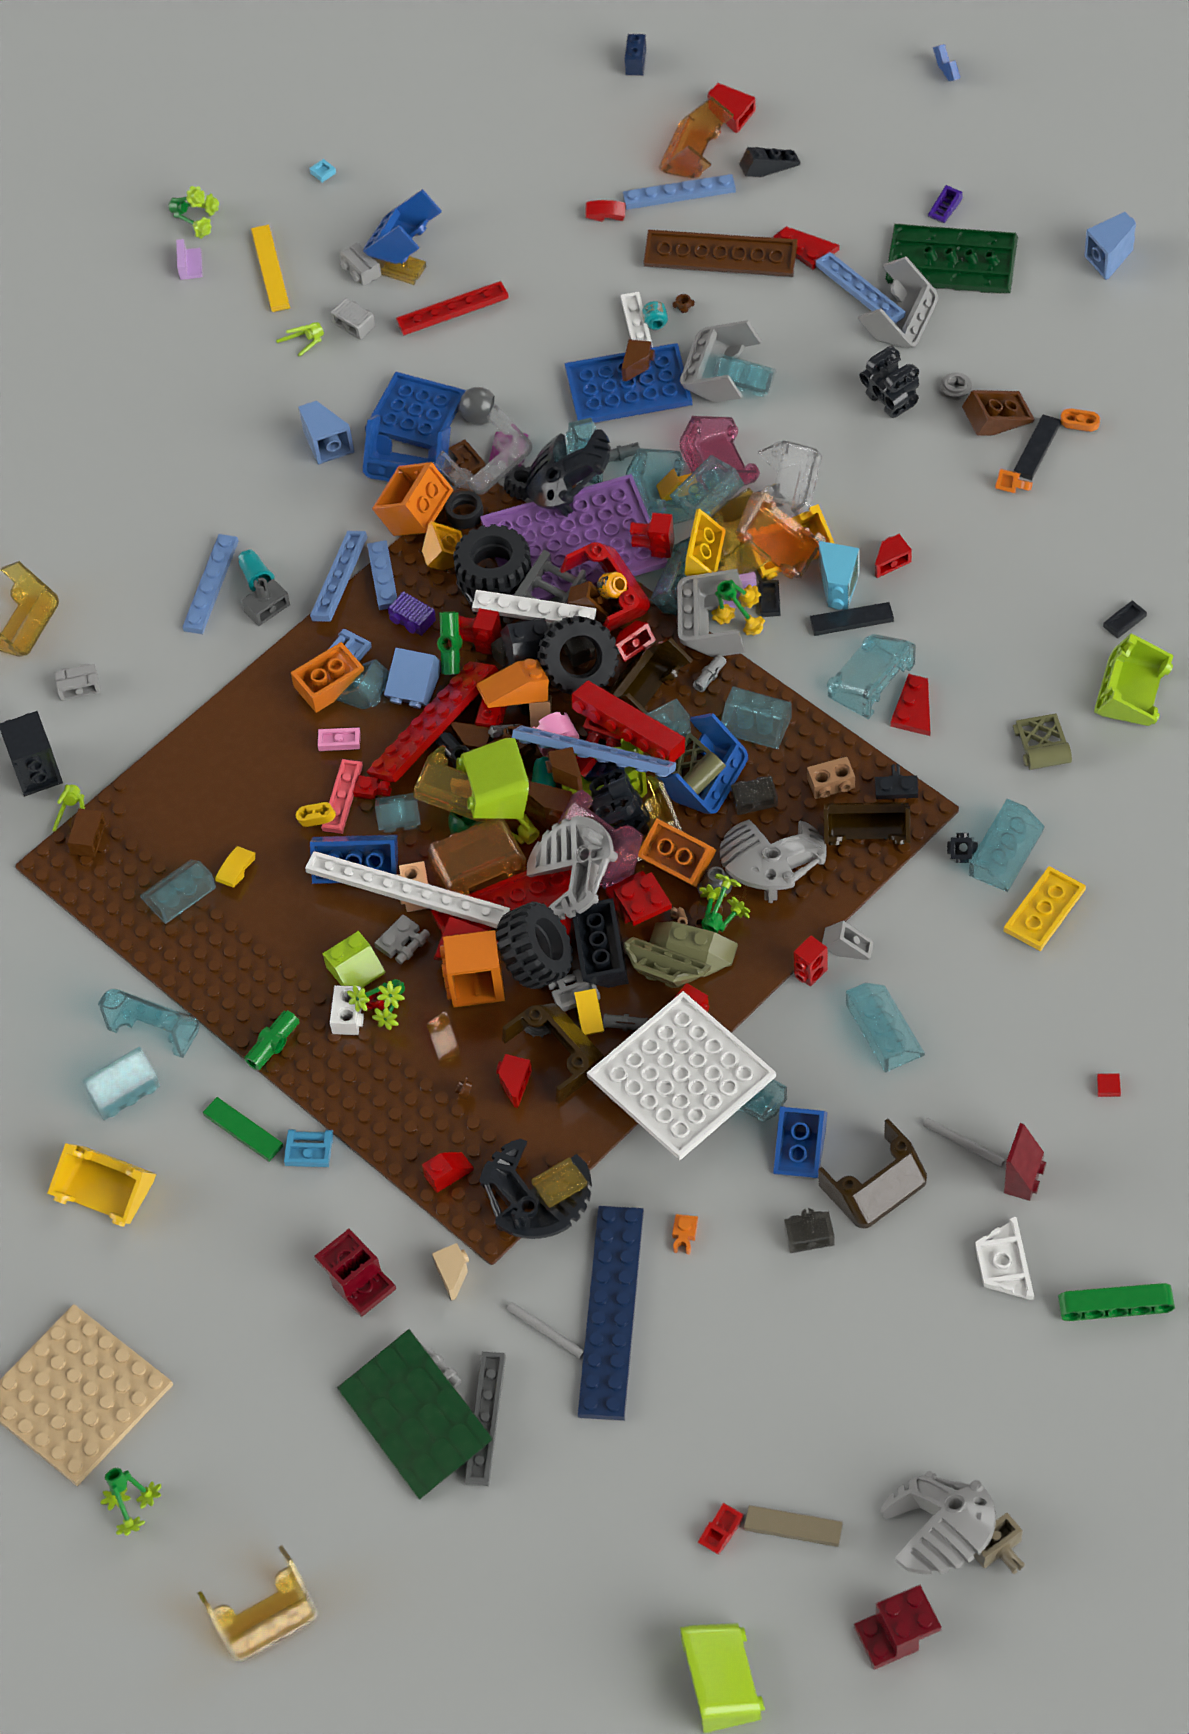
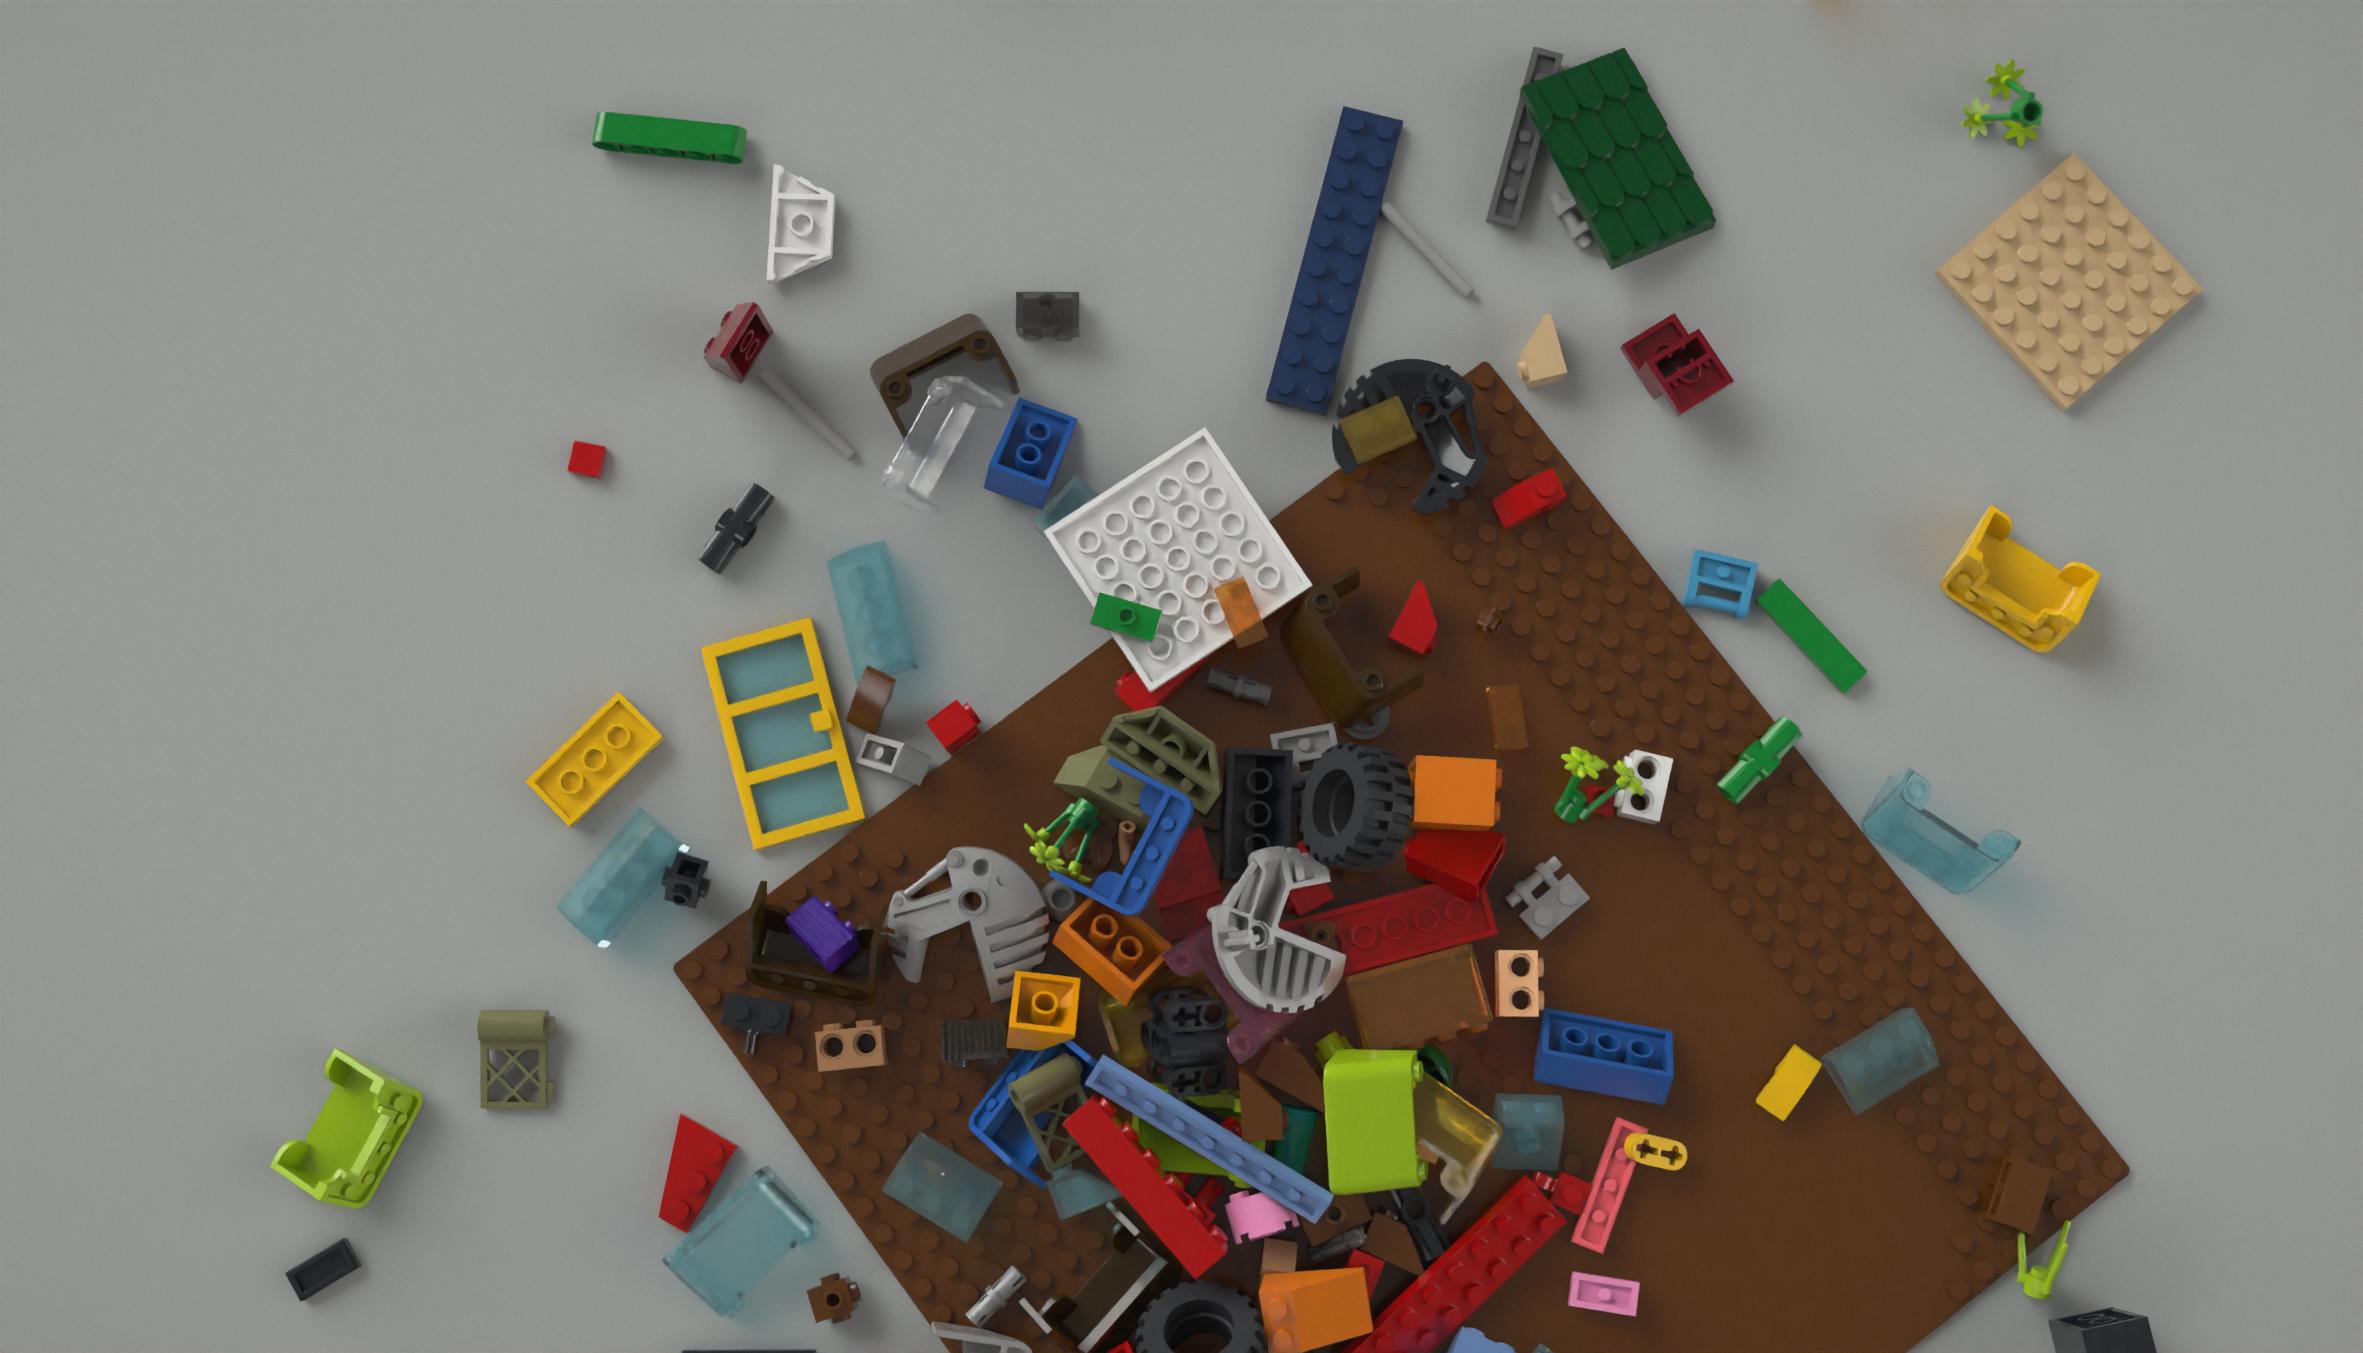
camera: 175 degrees left, 25 degrees up
(121, 1083) = (1983, 728): clear light blue slope -> none
(353, 962) = (1625, 864): lime slope -> none
(405, 889) = (1533, 960): white plate -> none
(548, 888) = (1326, 929): none -> reddish brown plate
(589, 1011) = (1290, 708): yellow tile -> none
(631, 1044) = (1240, 612): none -> clear orange tile
(671, 868) = (1170, 817): none -> blue windscreen
(683, 1231) = (1215, 358): orange plate -> none
(707, 1027) = (1126, 617): none -> green plate
(713, 812) = (1042, 1010): none -> light orange slope
(808, 655) = (822, 1301): none -> reddish brown brick
(860, 1145) = (933, 439): none -> clear windscreen
(863, 829) = (823, 933): none -> dark purple brick
(869, 970) = (870, 700): none -> reddish brown slope
(925, 948) = (783, 733): none -> door
(991, 1059) = (735, 528): none -> black piece

